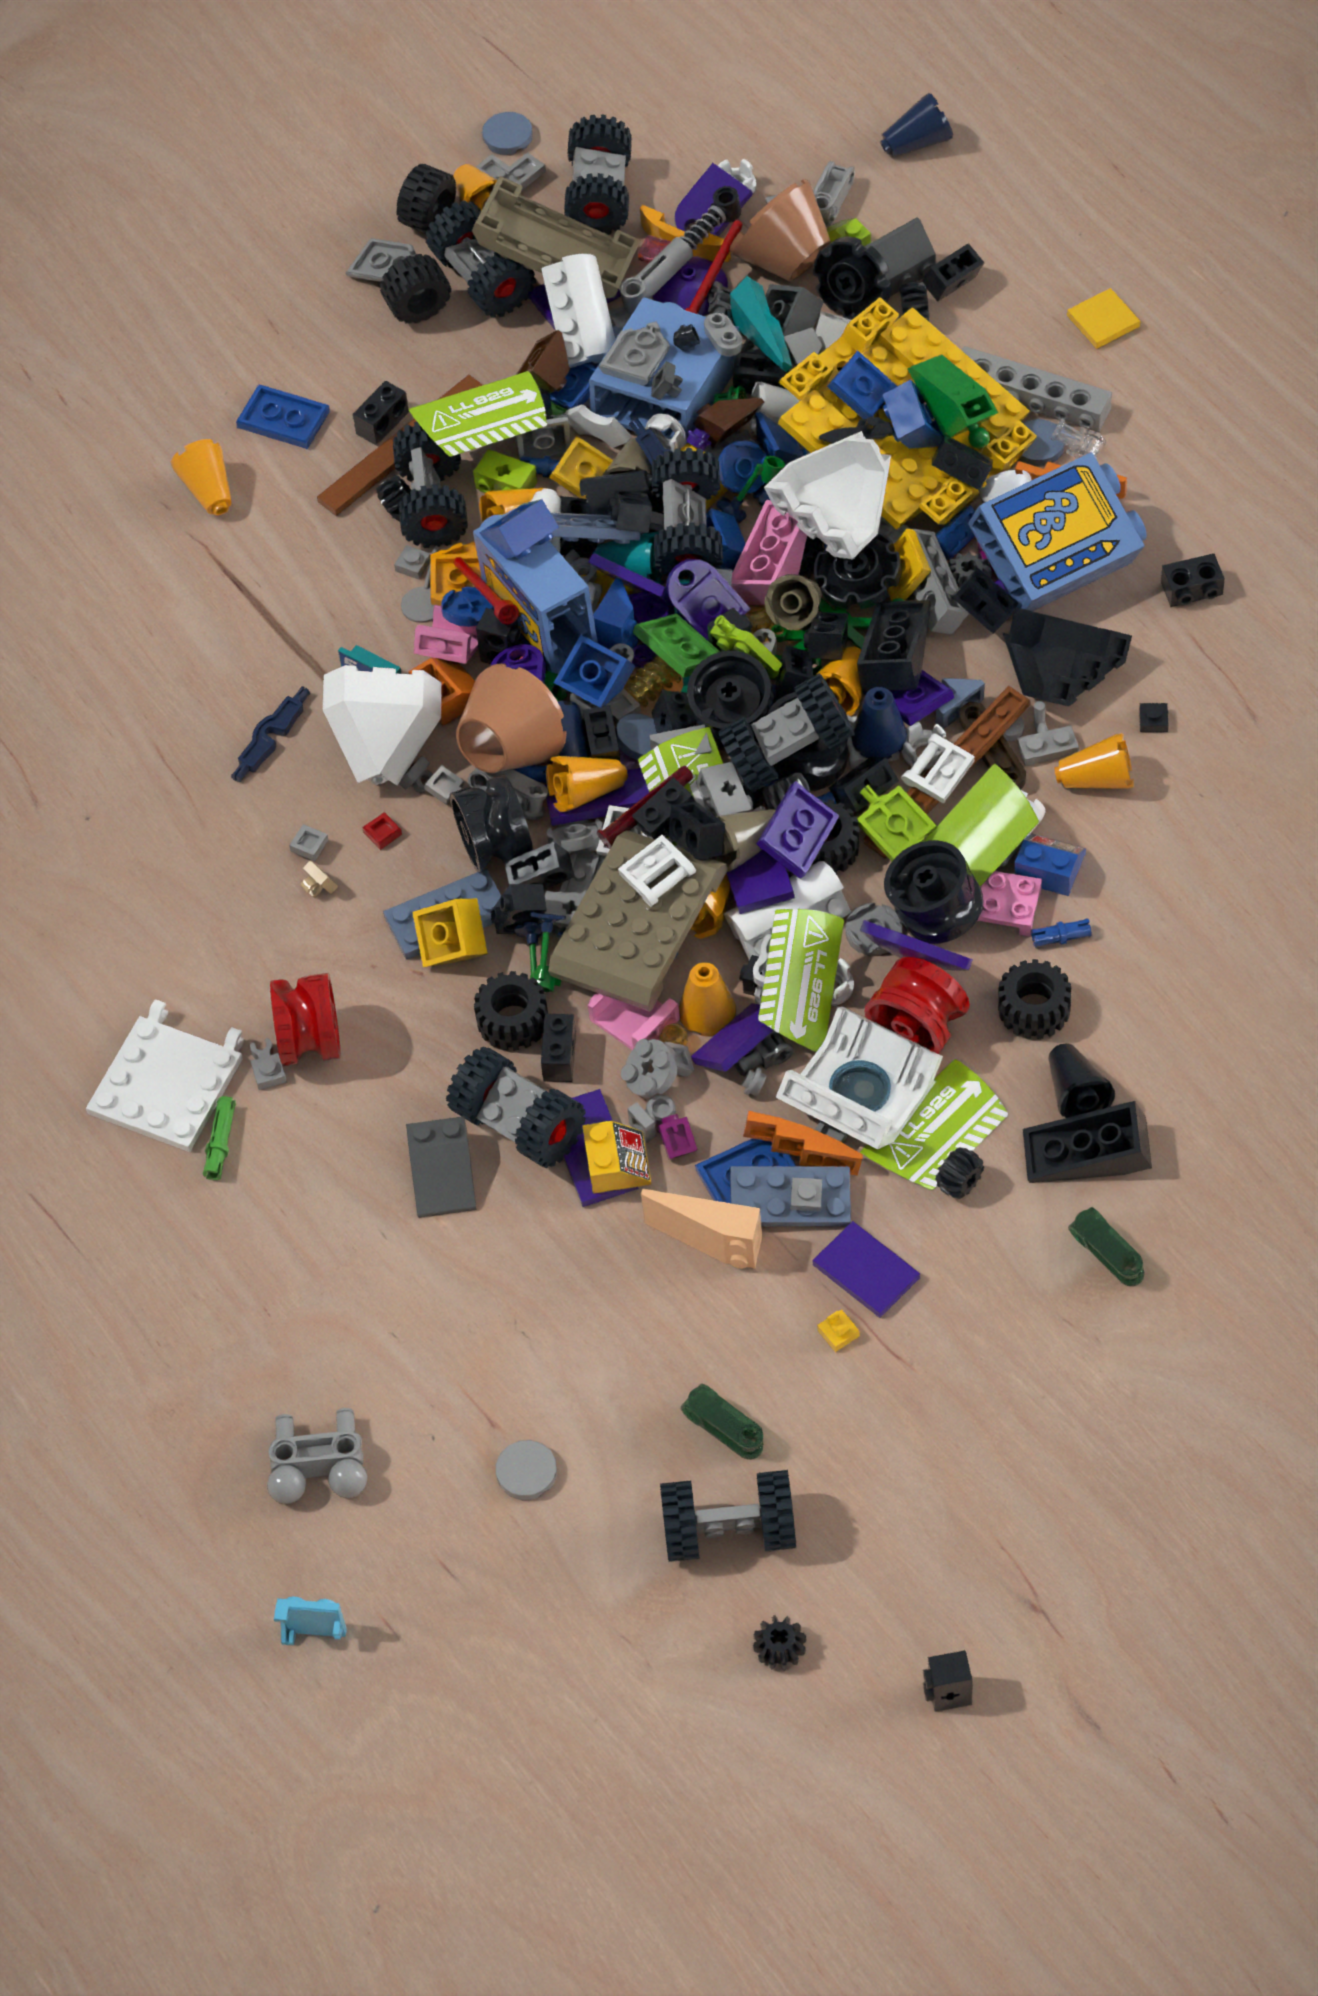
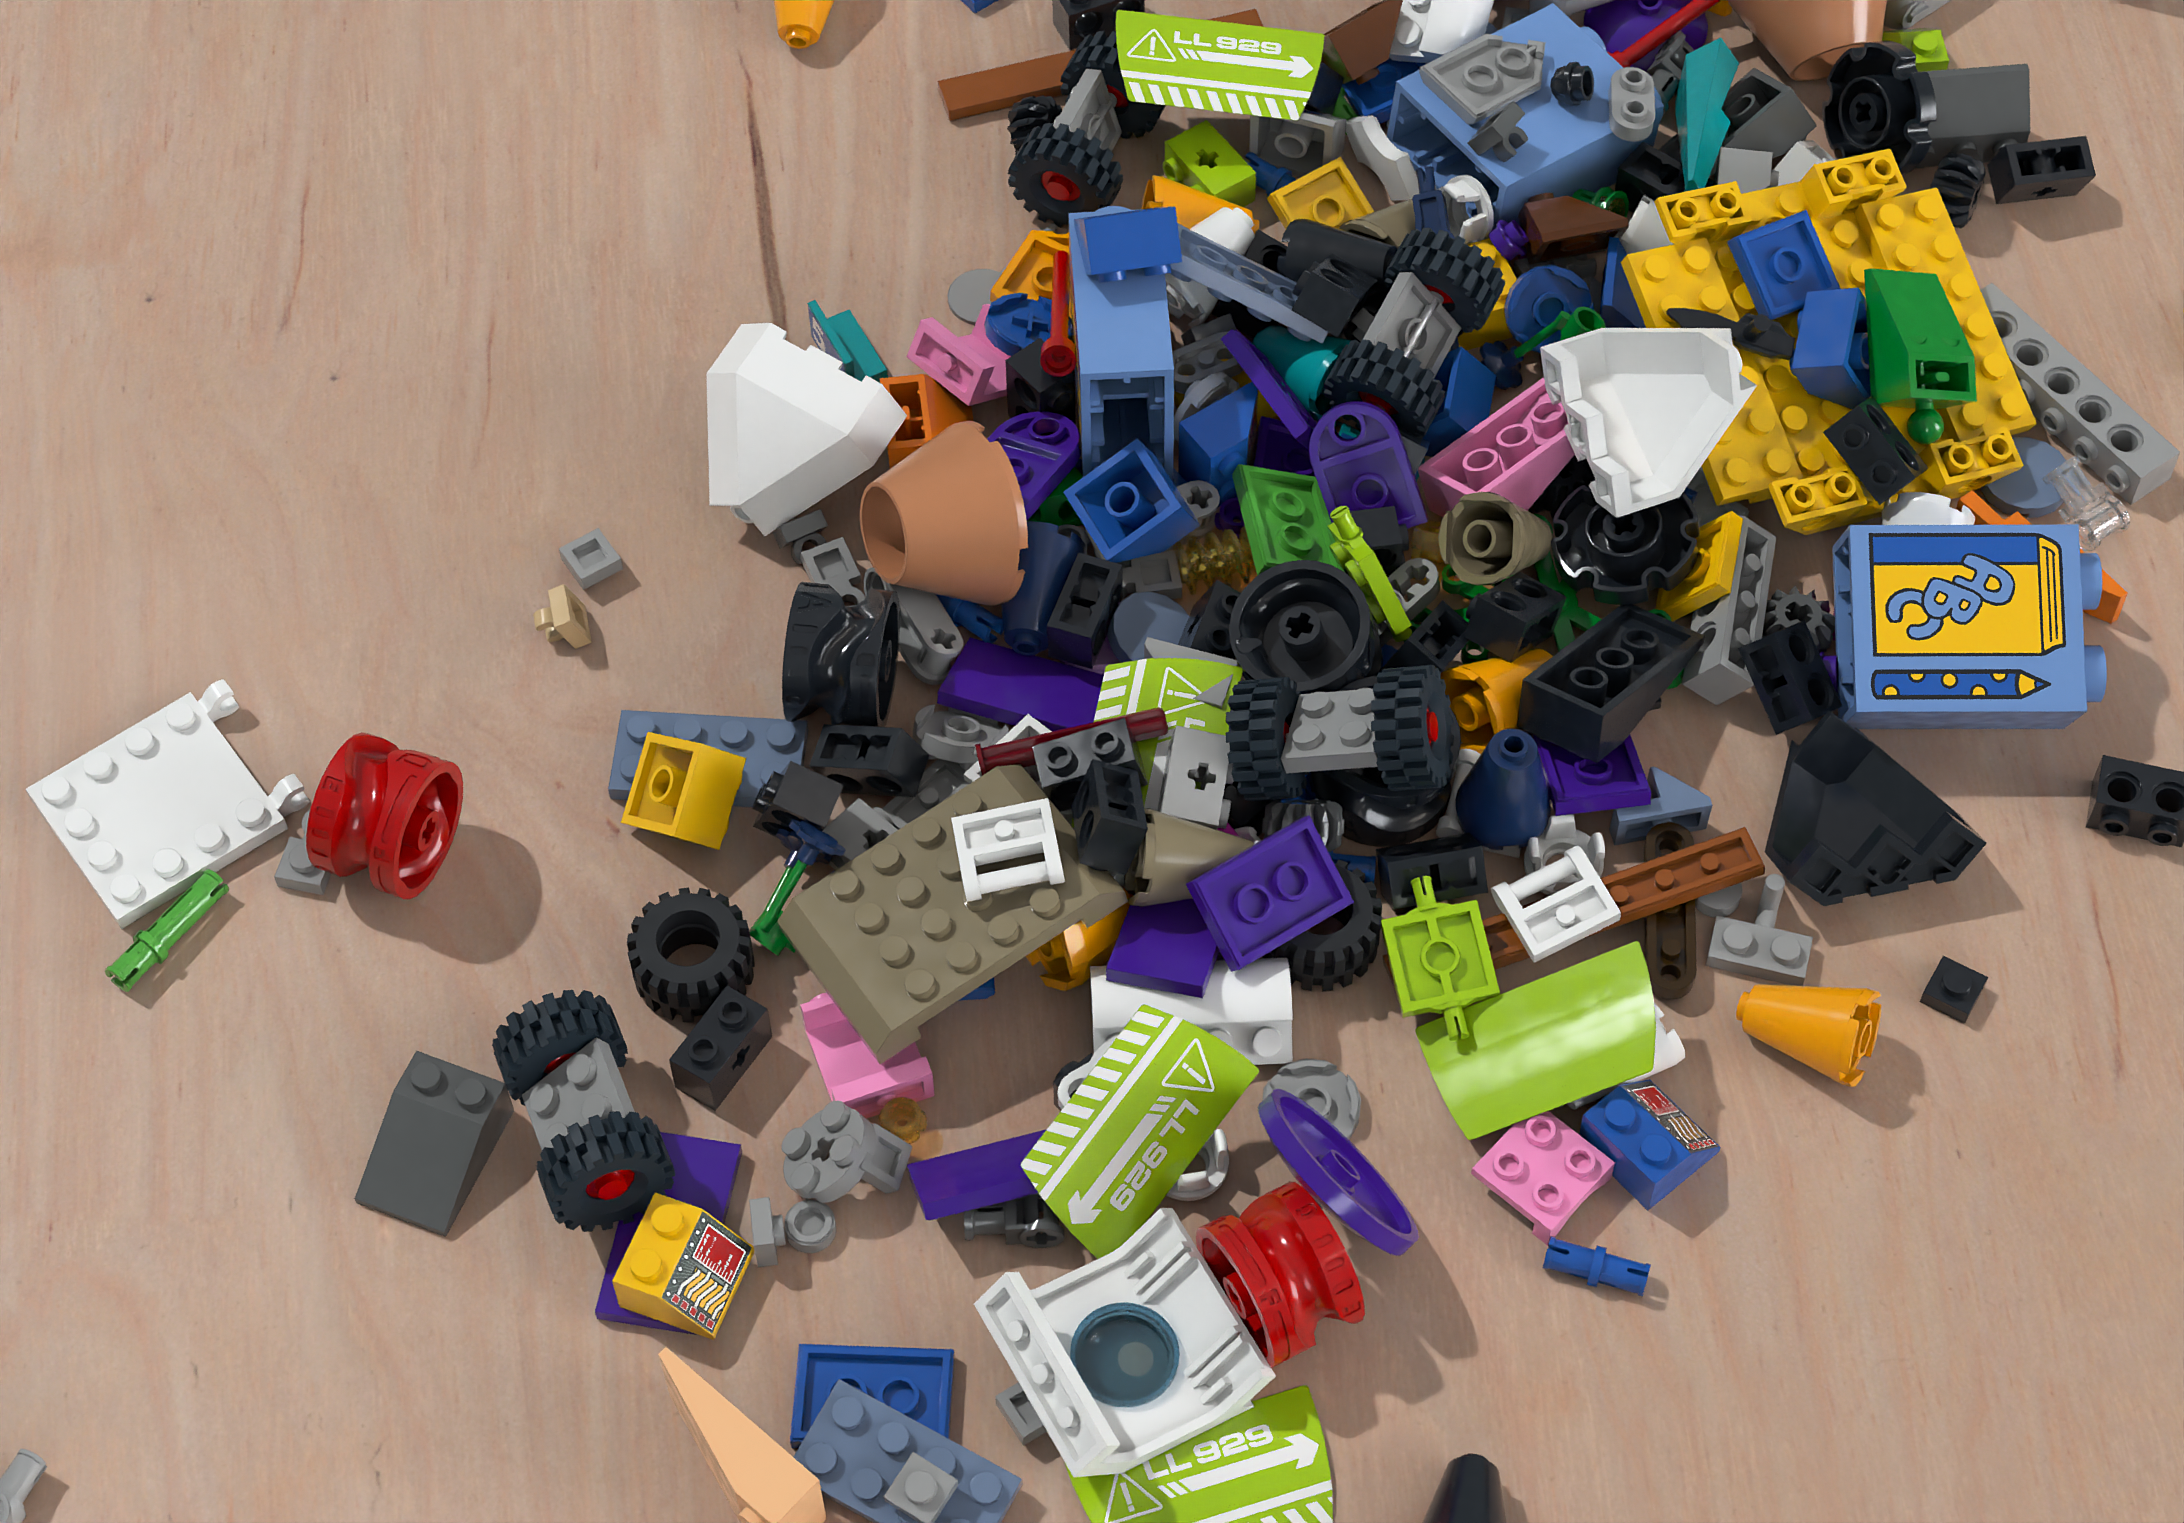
camera: 25 degrees right, 0 degrees up
(262, 745) = (629, 388): dark blue piece -> none
(382, 830) = (705, 592): red tile -> none
(412, 562) = (1005, 230): light grey plate -> none
(582, 779) = (1018, 658): light orange cone -> none
(676, 1136) = (799, 1283): magenta bracket -> none
(706, 1001) = (980, 1092): light orange cone -> none
(753, 1081) = (970, 1257): light grey plate -> none
(802, 1141) = (986, 1416): orange slope -> none
(933, 891) = (1424, 1098): black piece -> none
(956, 533) = (1806, 556): blue plate -> none
(1032, 1018) = (1490, 1318): black tyre -> none

